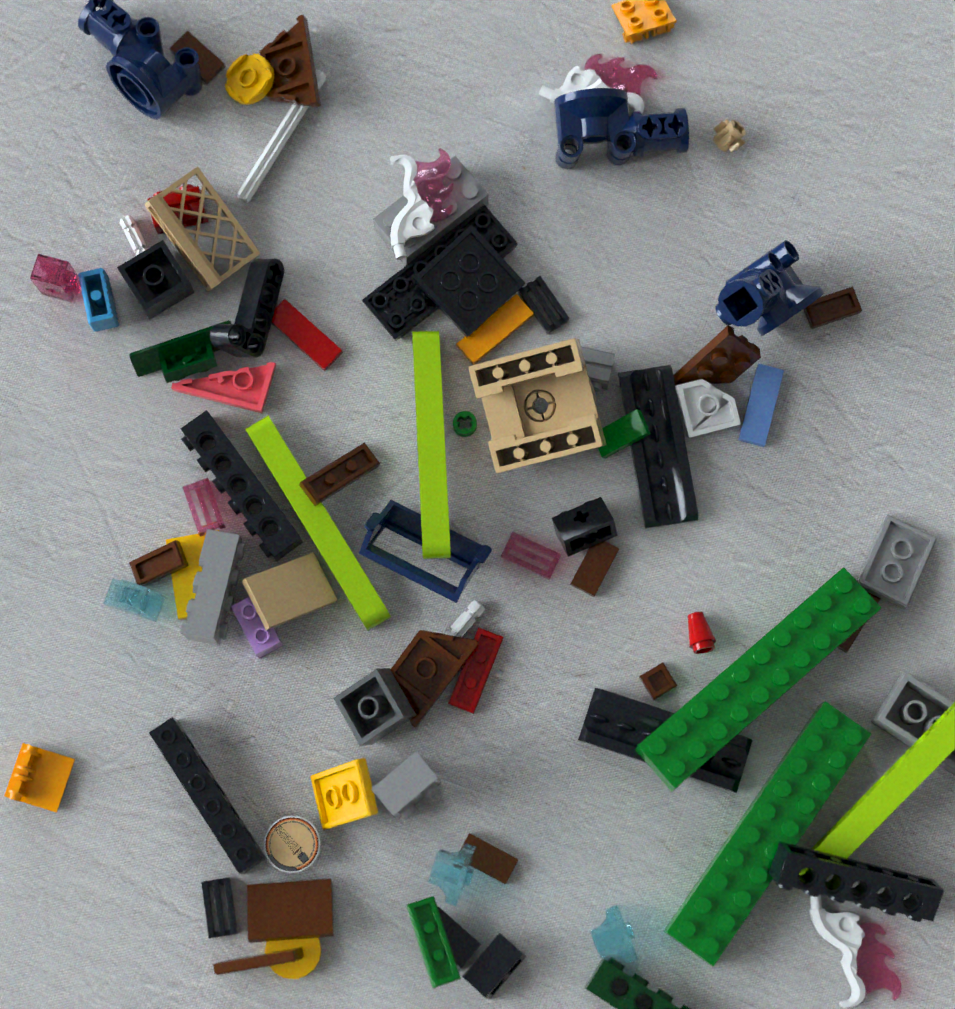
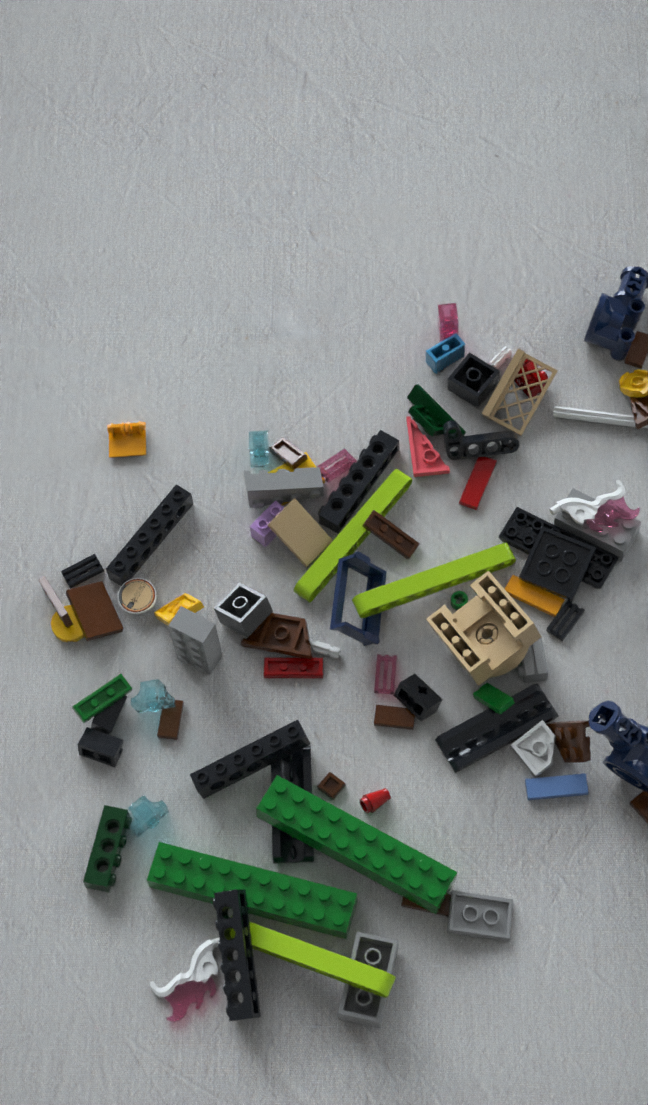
camera: 75 degrees right, 15 degrees down
(593, 773) = (250, 759): none -> black brick

